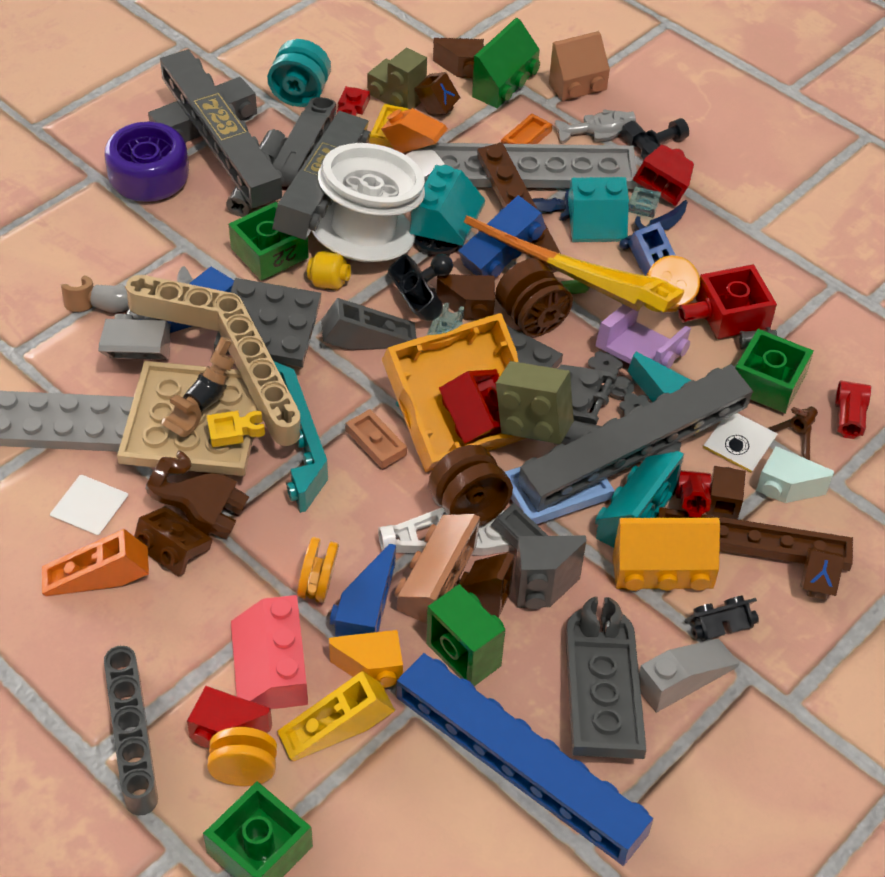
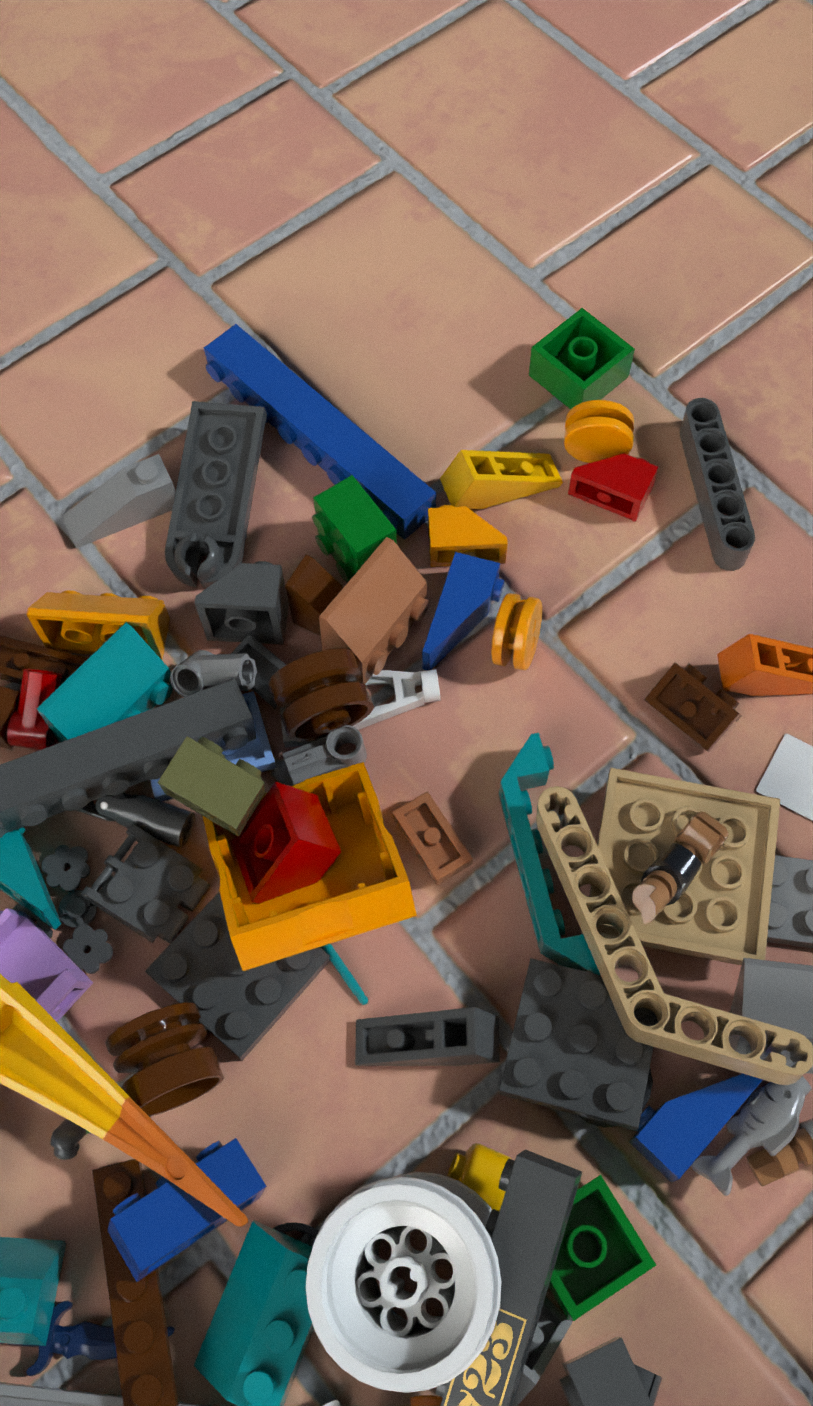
camera: 170 degrees left, 15 degrees up
(198, 497) = (662, 744): reddish brown hips -> none
(229, 428) = (634, 813): yellow plate -> none
(270, 654) = (571, 550): coral slope -> none
(415, 286) = (344, 1135): black piece -> none
(448, 321) = (309, 1033): clear light blue plate -> none
(472, 292) = (259, 1098): reddish brown slope -> none
(560, 521) = (207, 670): none -> light grey piece
(735, 613) = (61, 564): black hinge -> none

